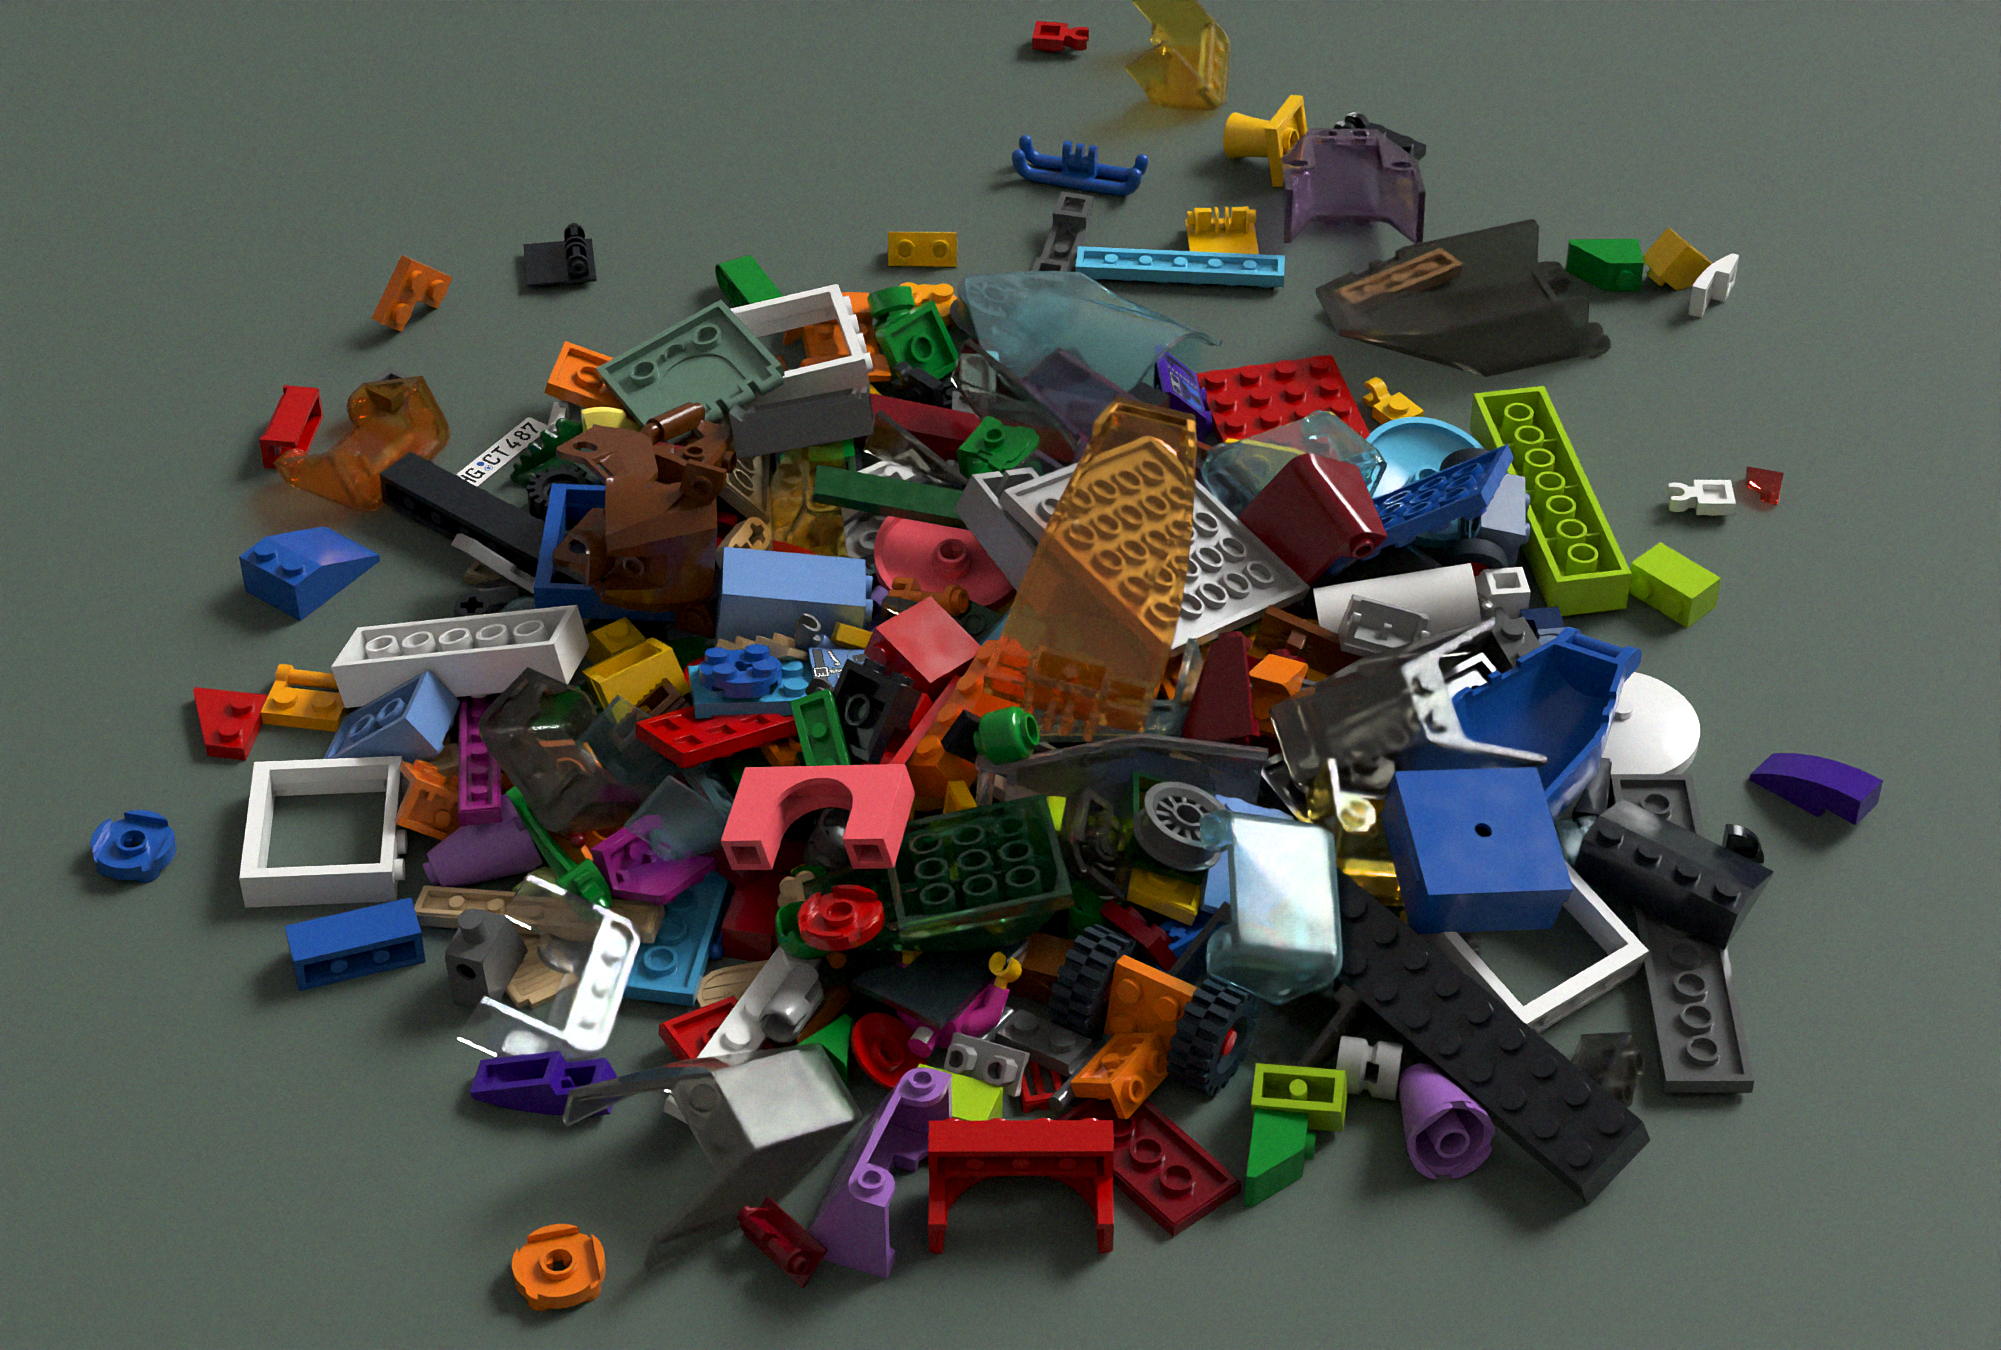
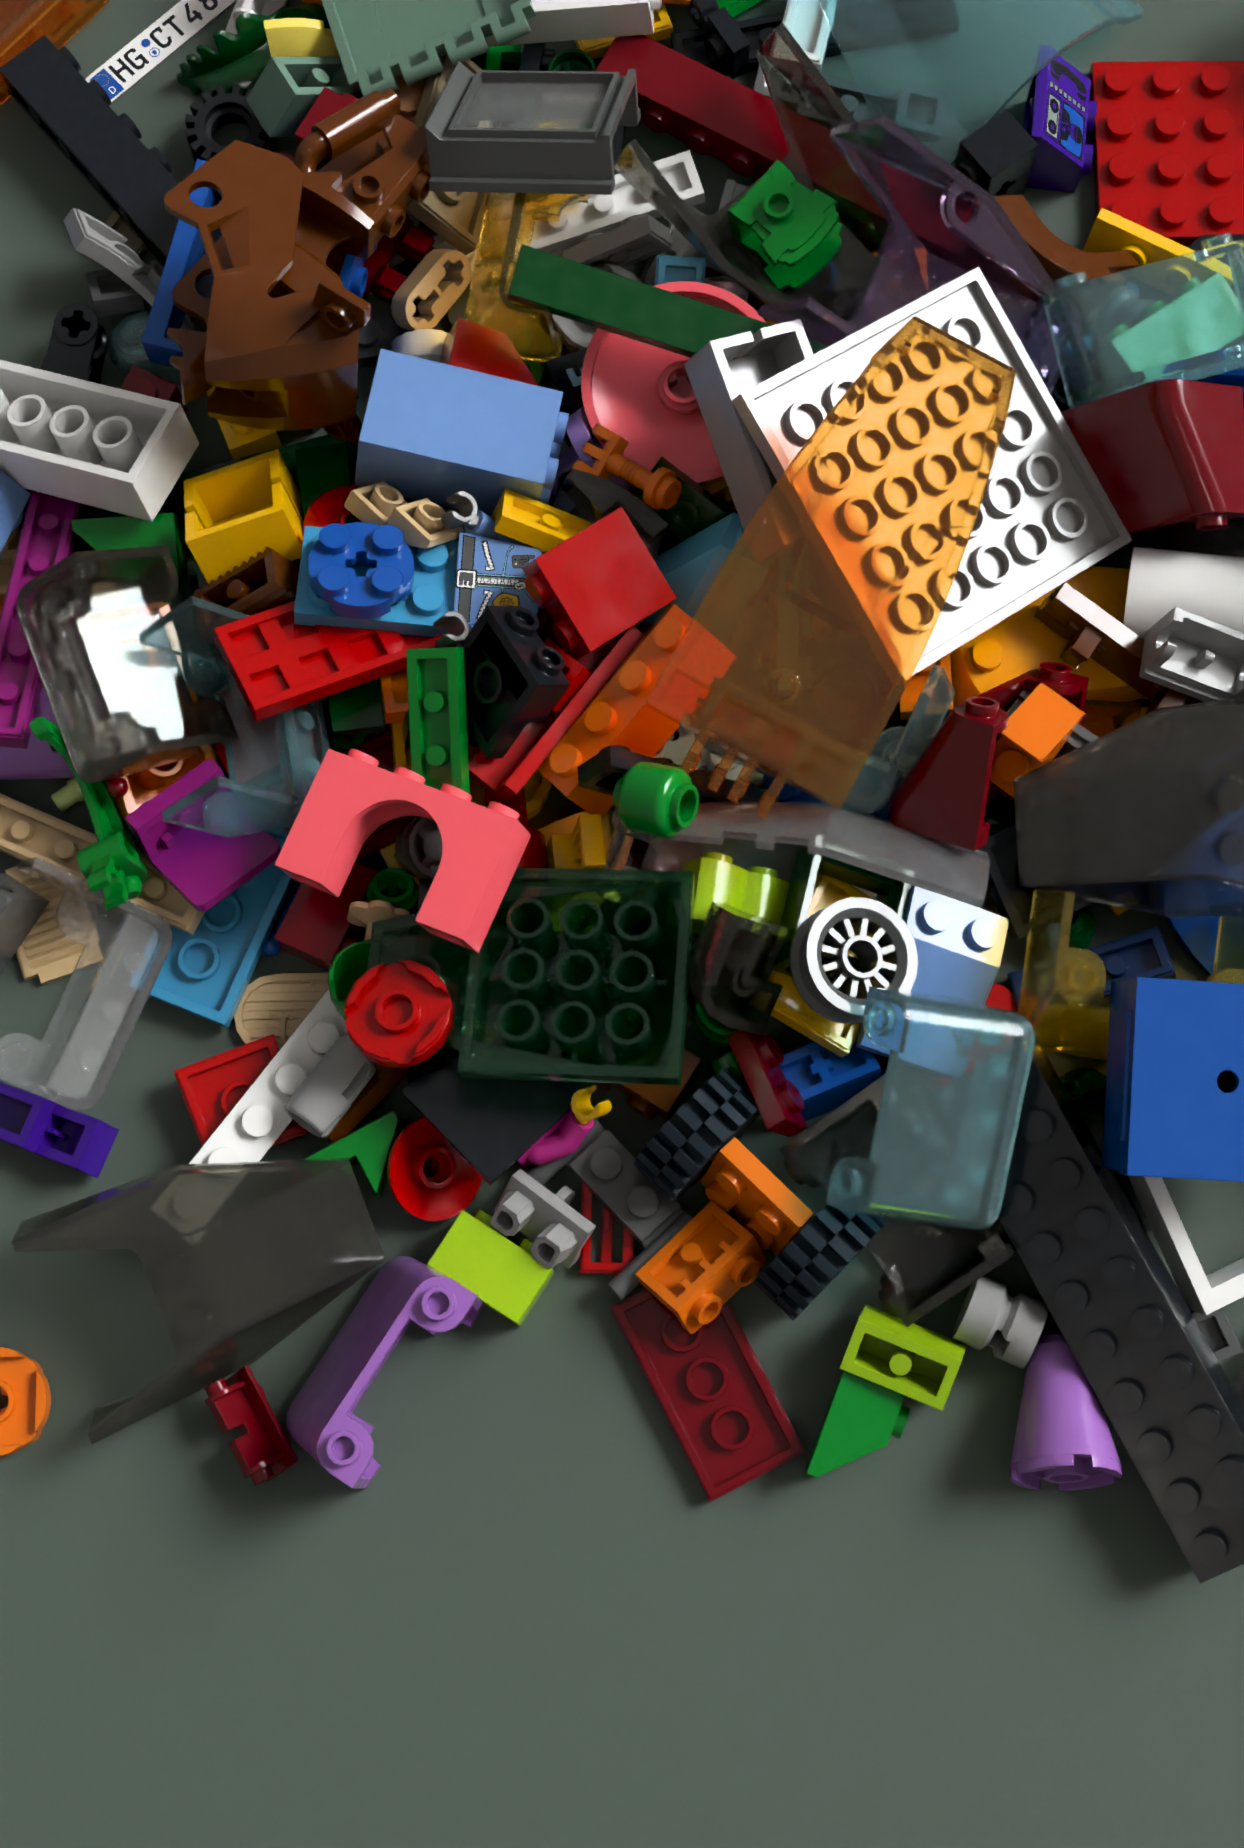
camera: 15 degrees right, 35 degrees up
(1065, 1150) = (501, 1391): red piece -> none

